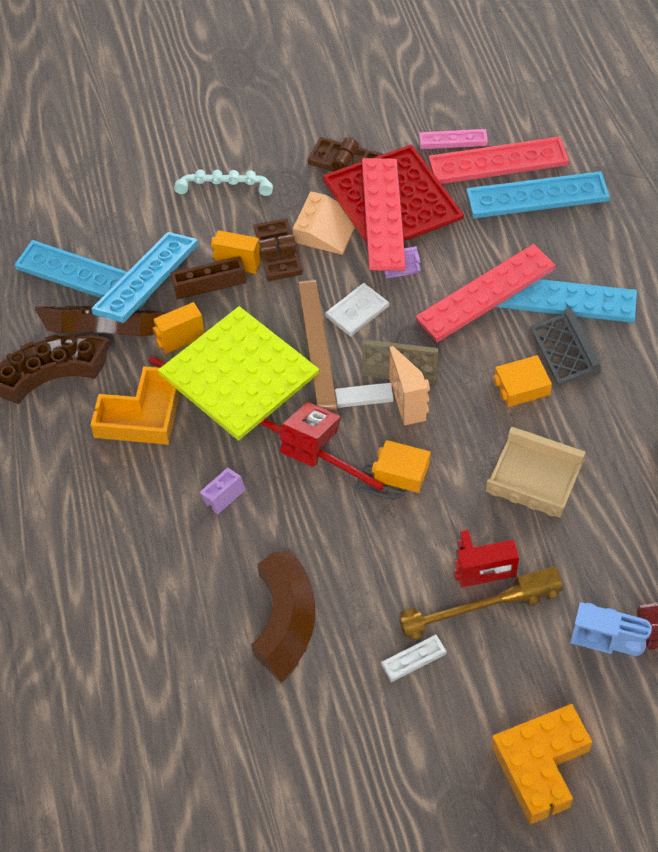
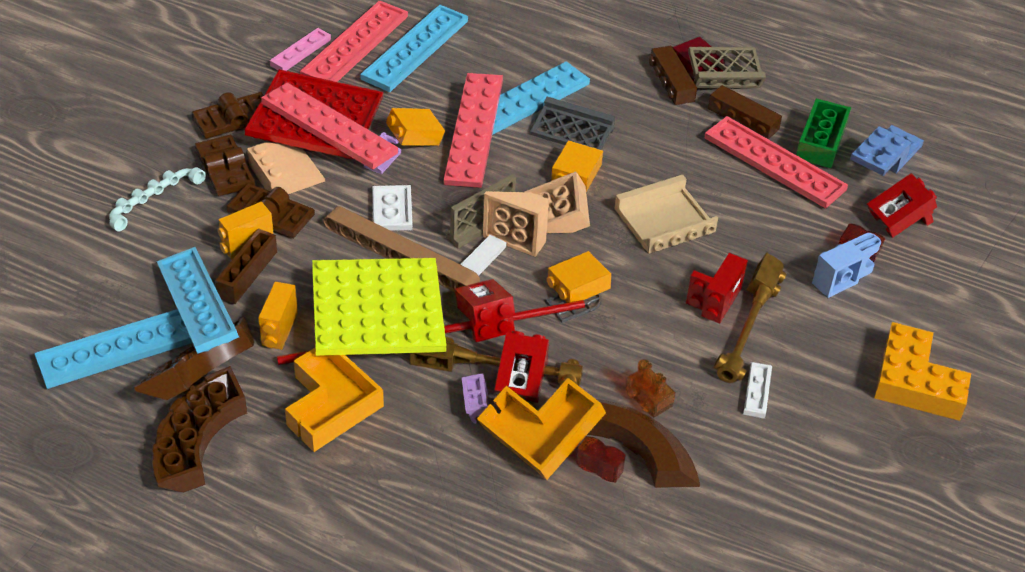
camera: 55 degrees left, 10 degrees down
(219, 549) = (546, 435): none -> light orange piece
(238, 602) = (601, 459): none -> clear red brick
(276, 491) = (523, 349): none -> red brick
(291, 192) = (224, 164): none -> reddish brown plate
(299, 526) = (458, 354): none -> pearl gold bar
(334, 588) = (650, 389): none -> clear orange brick
(444, 258) = (415, 126): none -> light orange brick
(466, 401) = (567, 203): none -> light nougat slope

